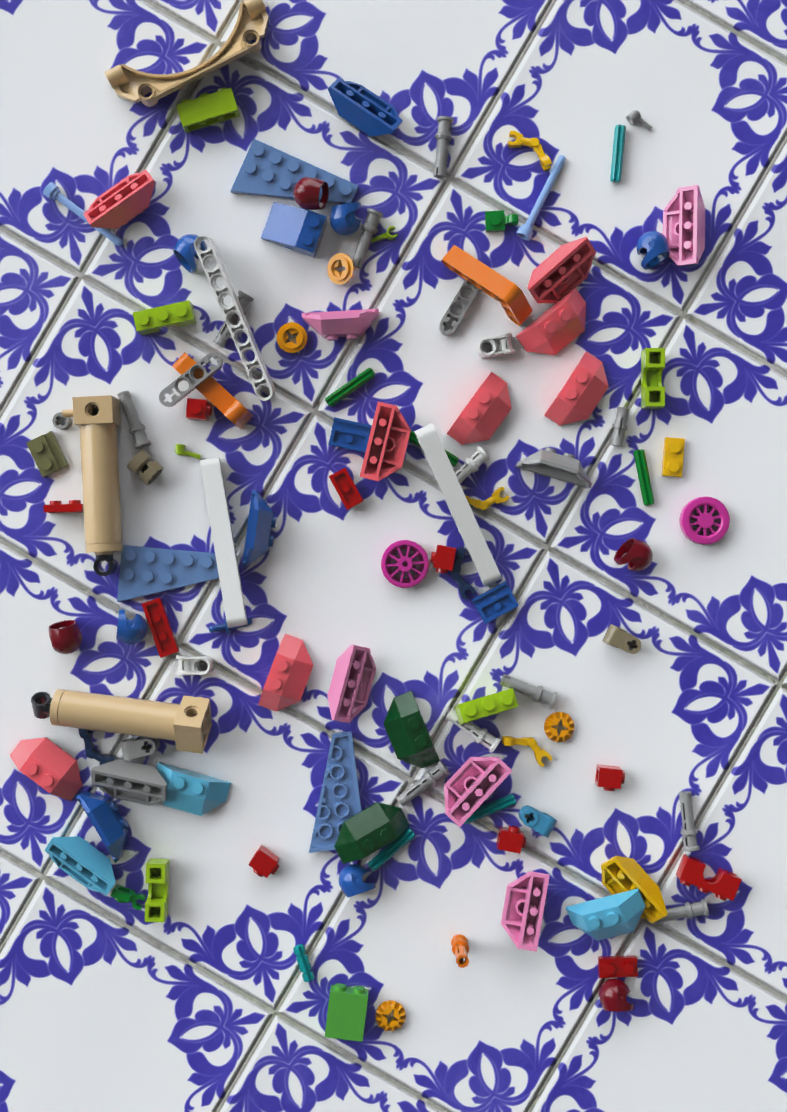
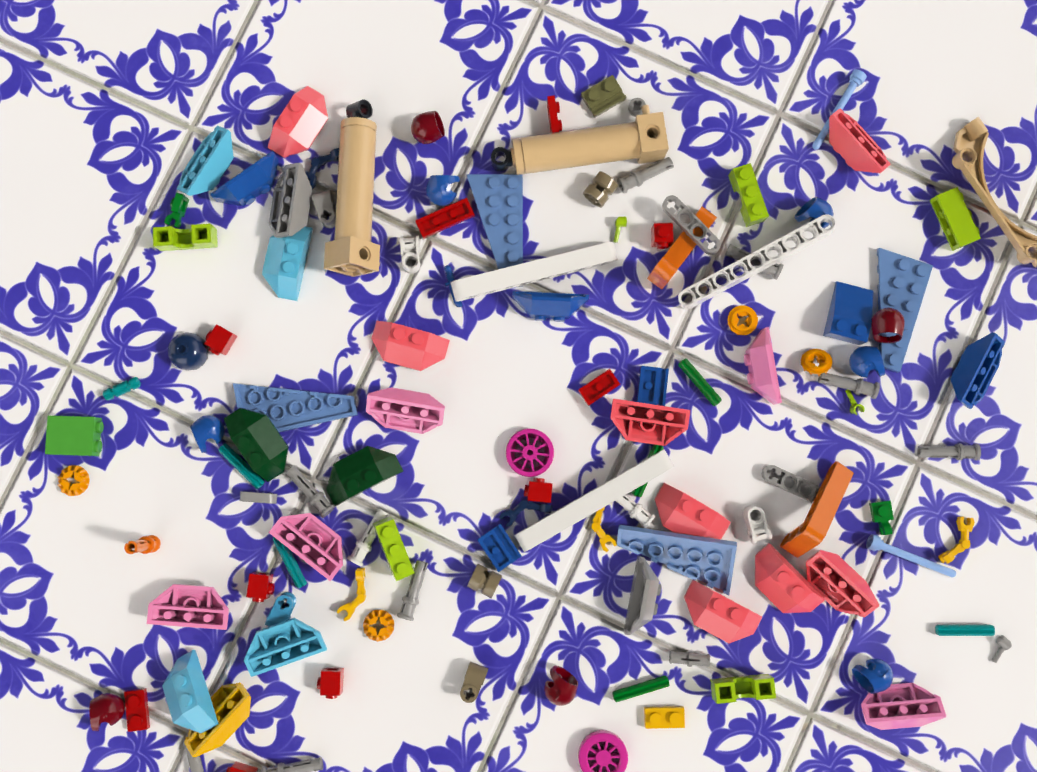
camera: 80 degrees right, 5 degrees down
(272, 895) = (188, 351): none -> dark blue cylinder
(424, 834) = (258, 497): none -> light grey beam
(520, 416) = (689, 555): none -> medium blue wing
(526, 620) = (484, 581): none -> dark tan wheel
(569, 821) = (282, 645): none -> medium azure wedge

